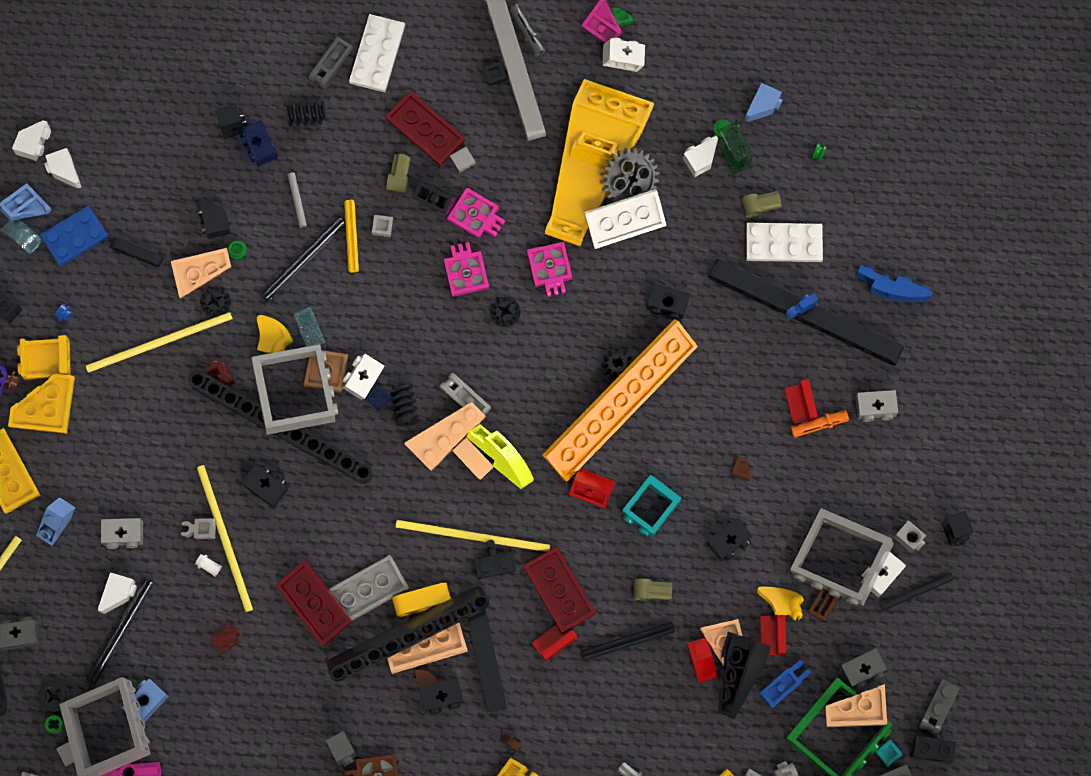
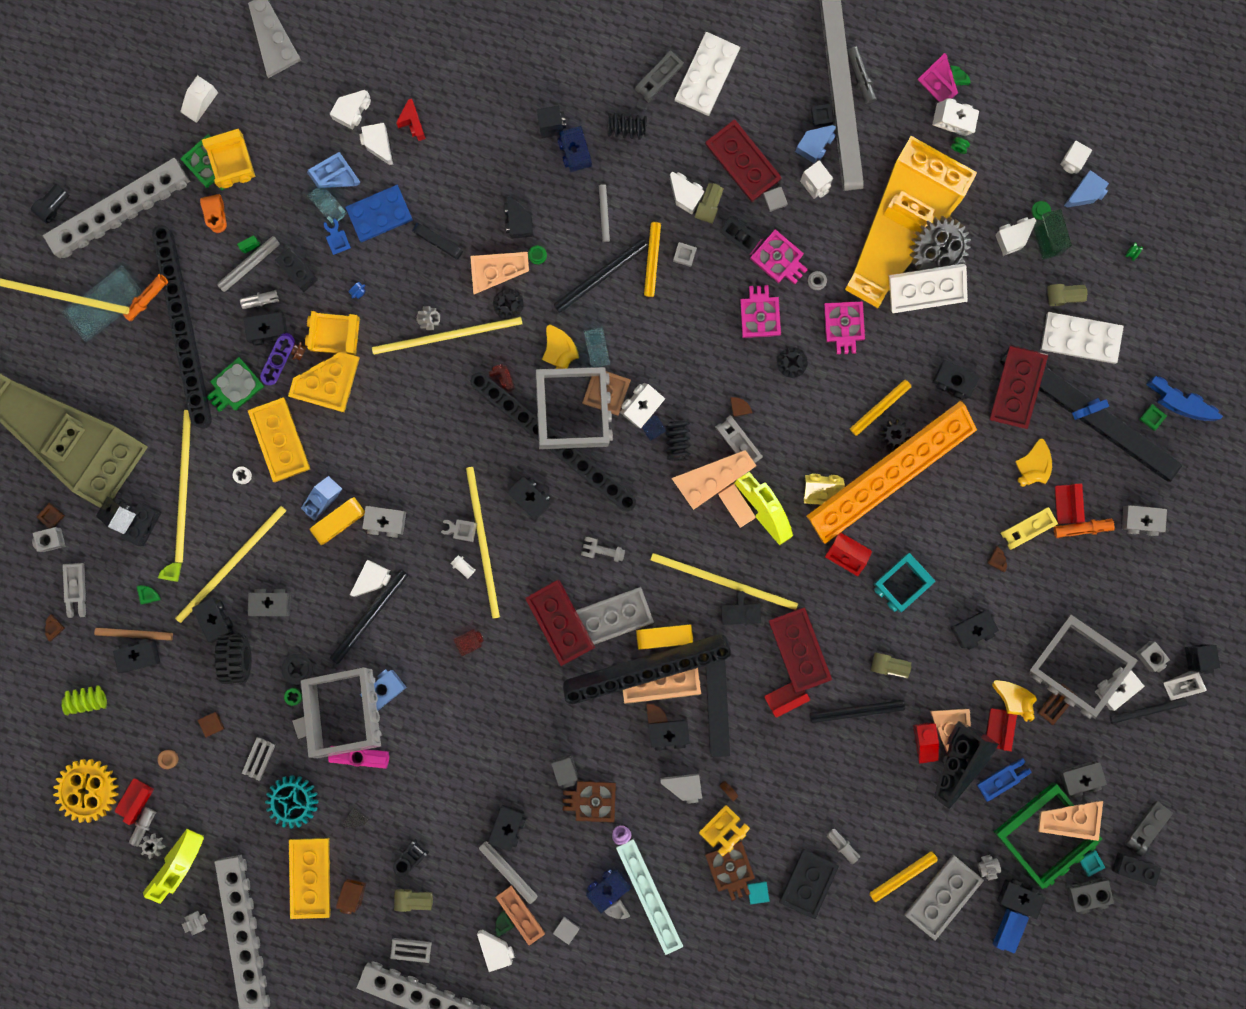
camera: 15 degrees right, 10 degrees up
(36, 267) = (337, 239): none -> blue plate
(74, 540) = (337, 521): none -> yellow beam
(92, 140) = (410, 116): none -> red slope
(137, 327) = (428, 318): none -> light grey gear
(362, 525) = (618, 554): none -> light grey hinge
(374, 168) = (685, 193): none -> white slope
(460, 363) = (740, 407): none -> reddish brown tile
(465, 746) = (684, 786): none -> light grey slope
(491, 100) = (814, 141): none -> medium blue slope
(498, 134) = (816, 180): none -> white brick
(516, 224) = (817, 274): none -> light grey plate
(552, 428) = (821, 488): none -> light yellow bracket
(599, 341) = (878, 409): none -> yellow axle
(633, 80) = (960, 145): none -> green bush
(729, 297) = (1018, 387): none -> dark red plate
(746, 74) = (1075, 157): none -> white brick
(761, 371) = (1035, 465): none -> yellow arm
(766, 432) = (1030, 528): none -> light yellow plate
(867, 306) = (1152, 417): none -> green tile
(946, 559) = (1184, 685): none -> white slope

